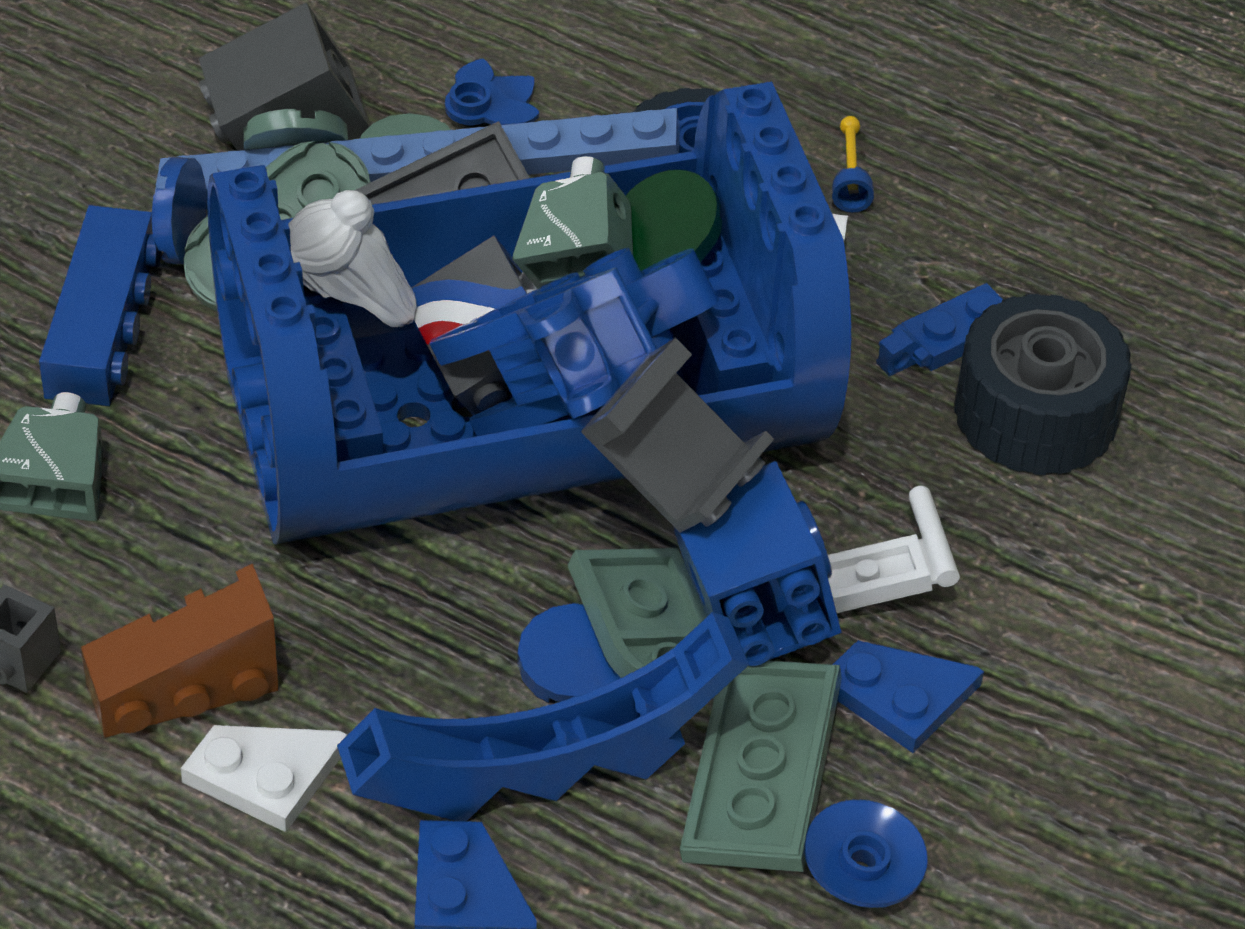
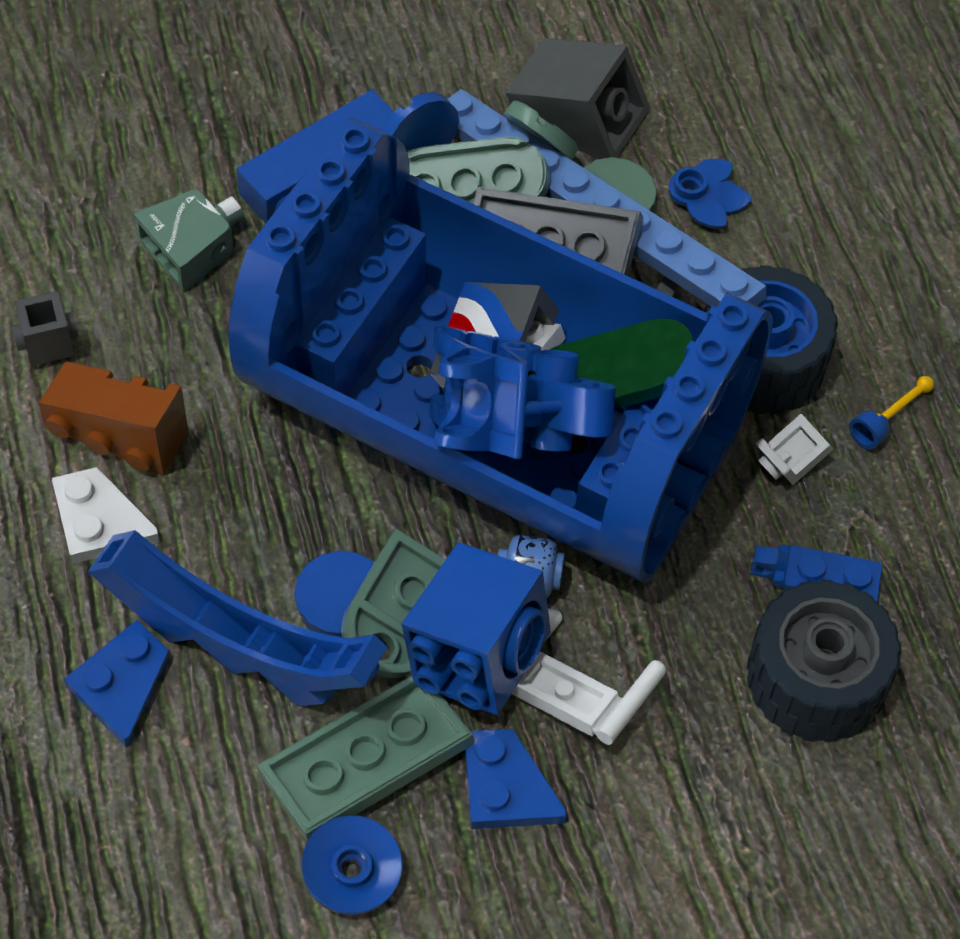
camera: 45 degrees right, 10 degrees up
(350, 257) = (426, 241): white hair -> none
(573, 224) = (592, 318): sand green torso -> none
(674, 442) = (477, 507): dark grey panel -> none

